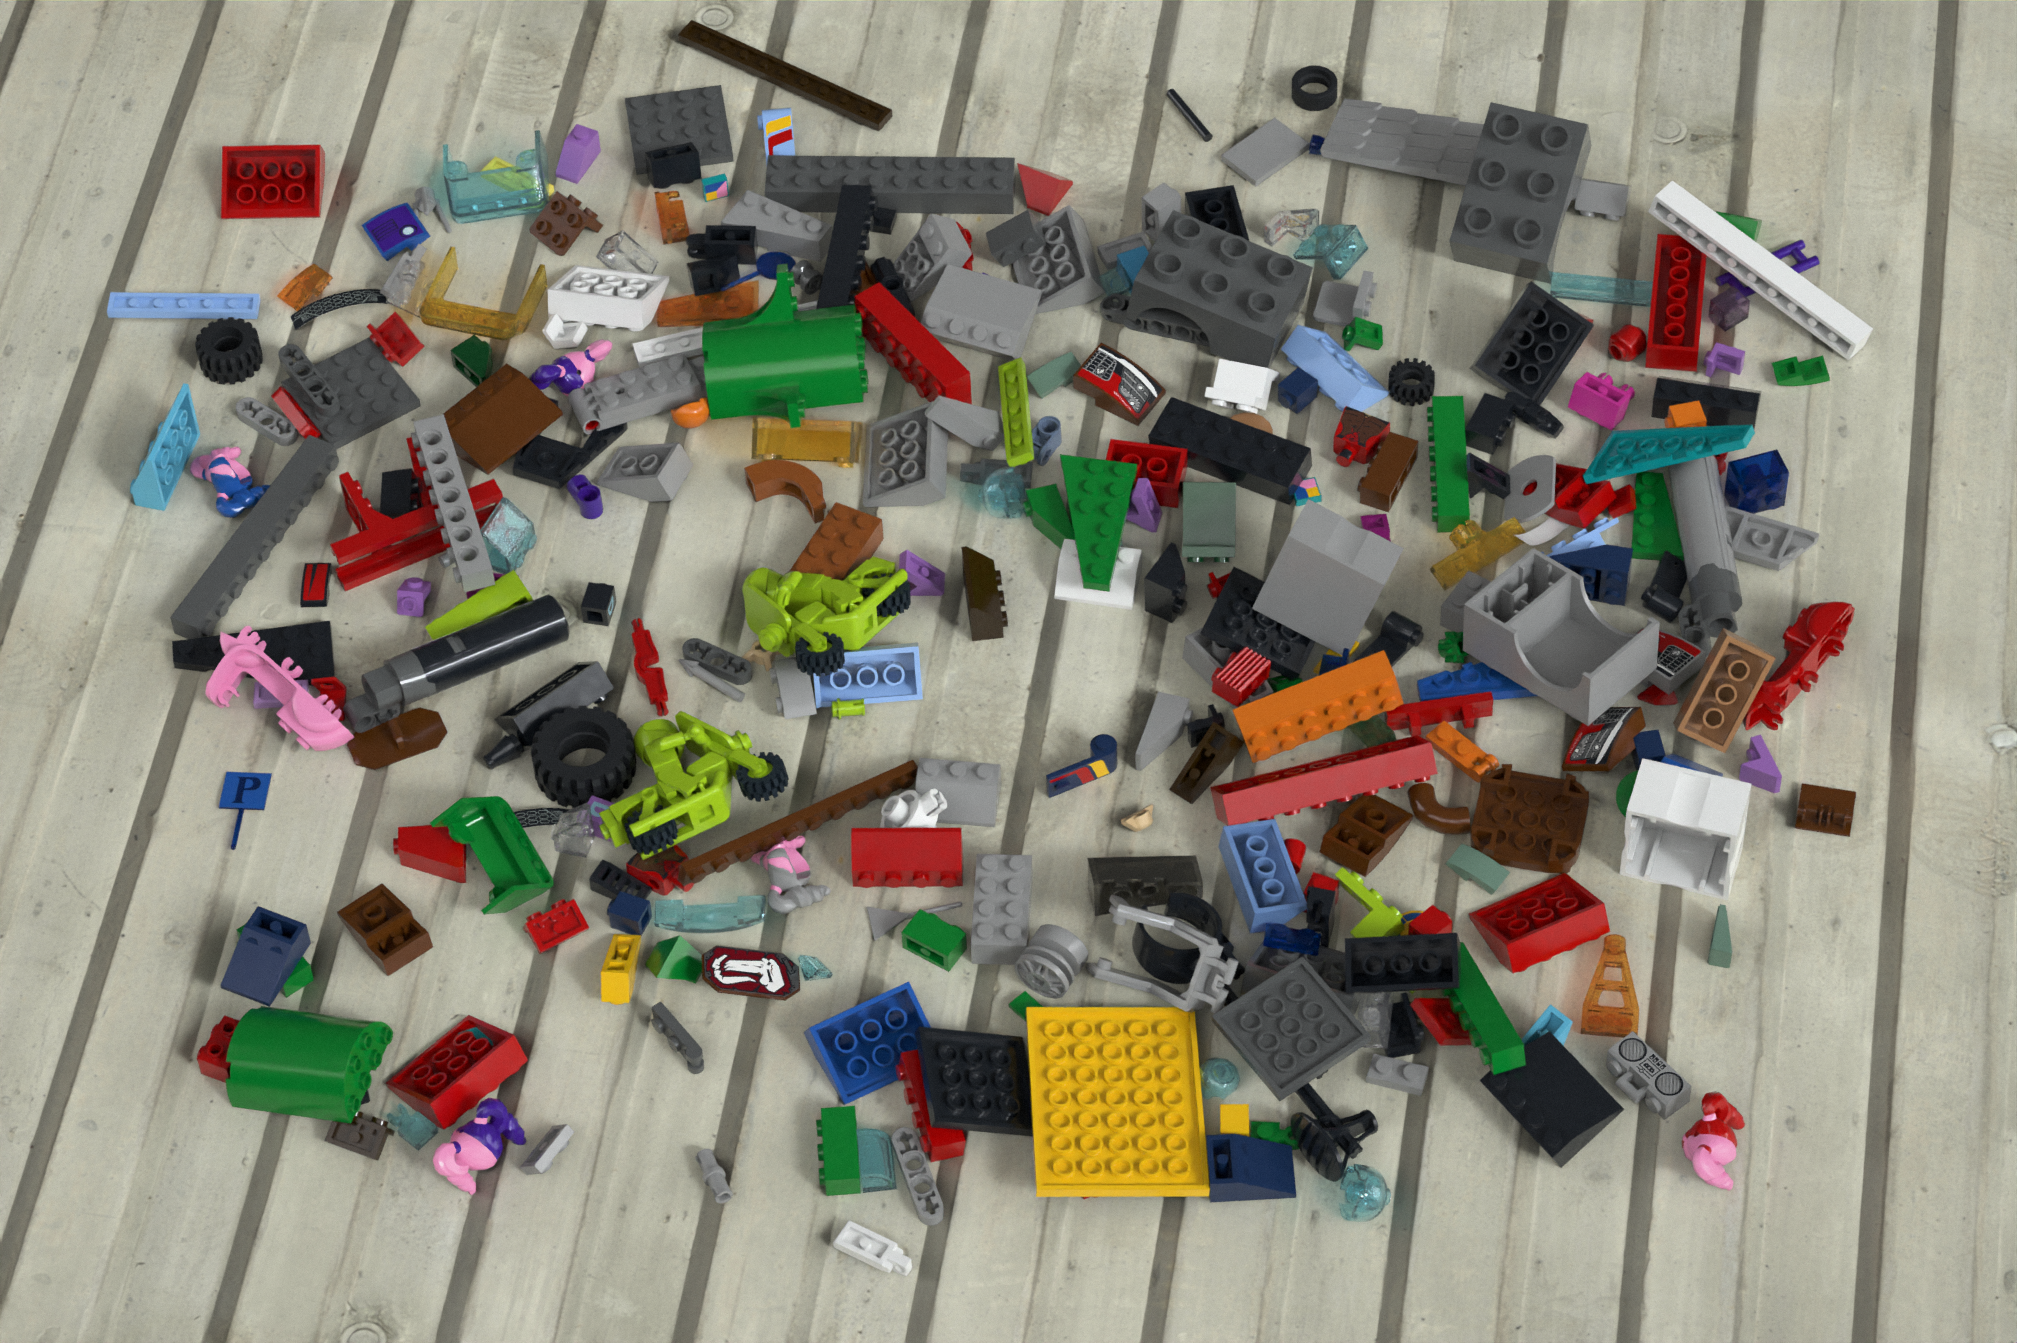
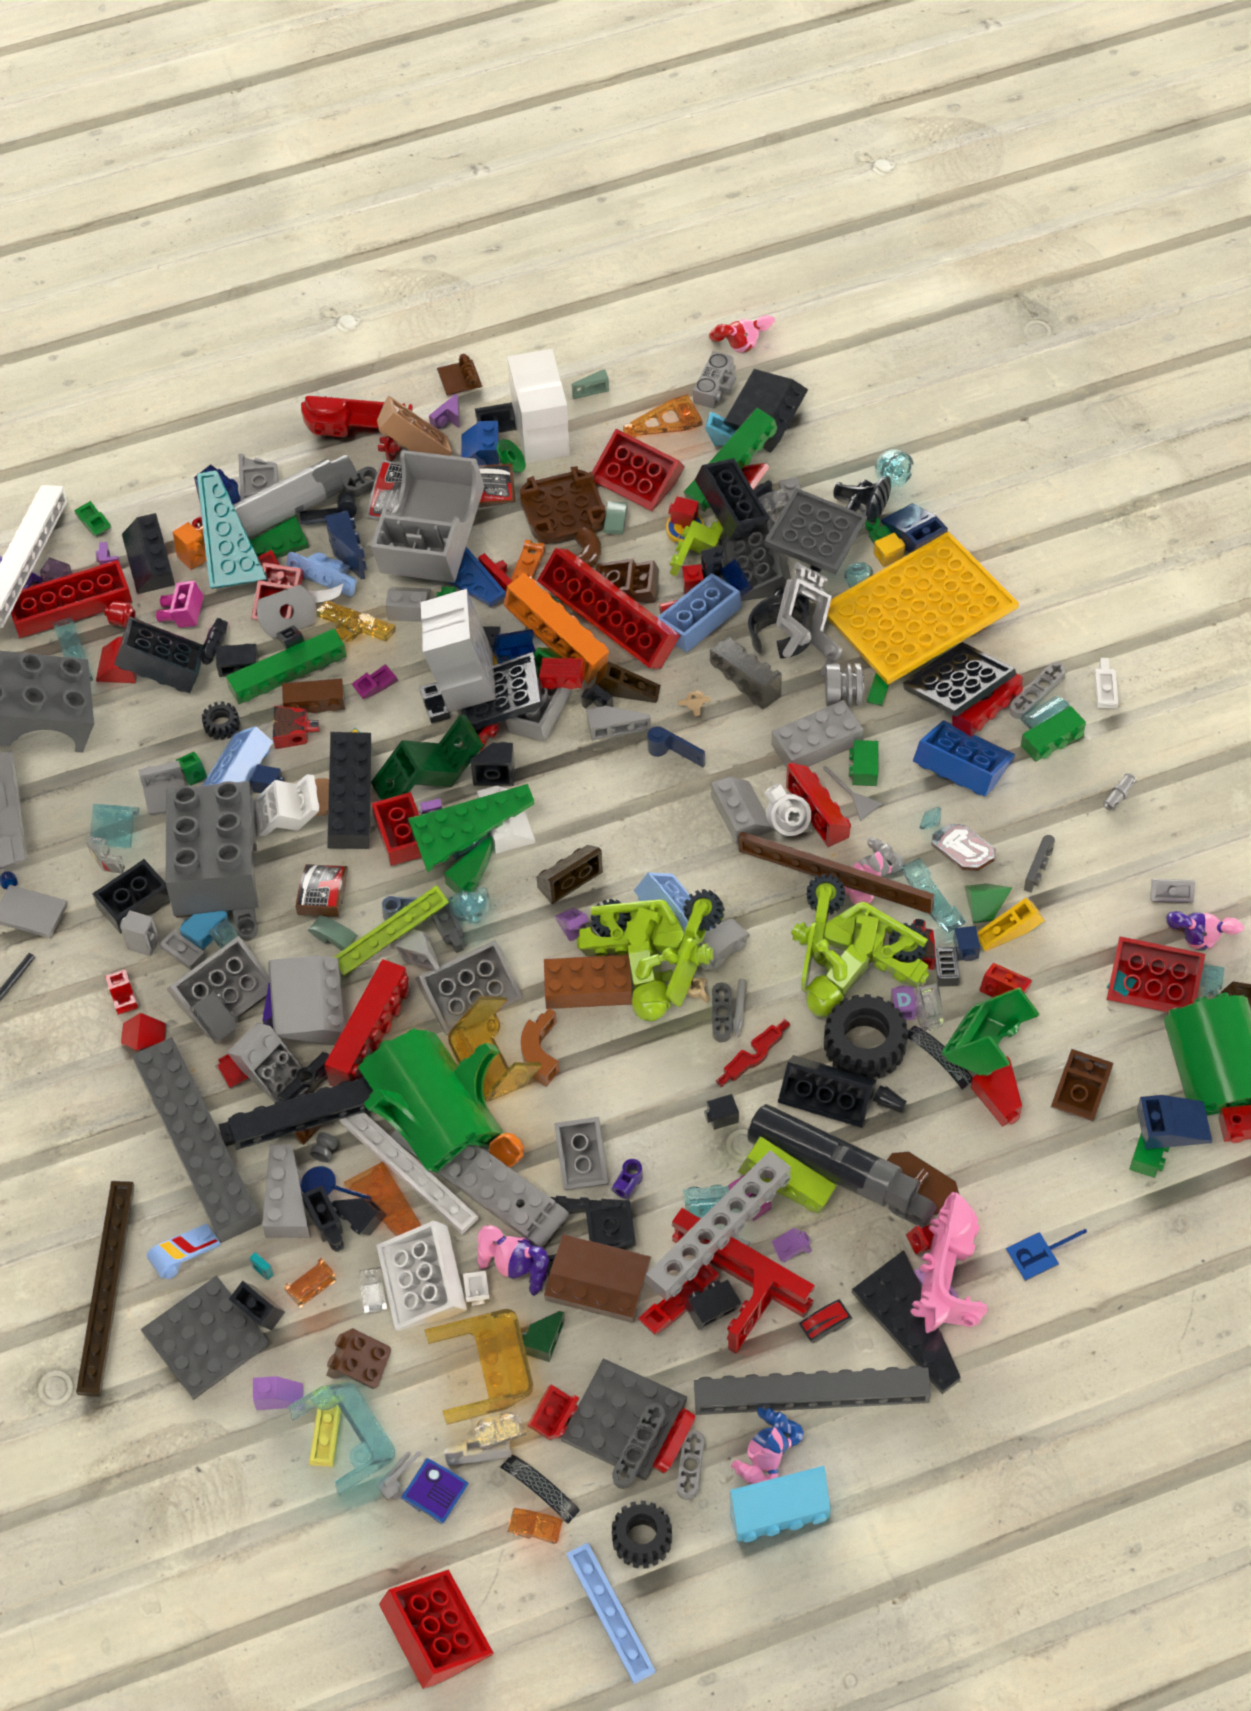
camera: 120 degrees left, 5 degrees up
(1118, 192) = (121, 991): none -> red slope

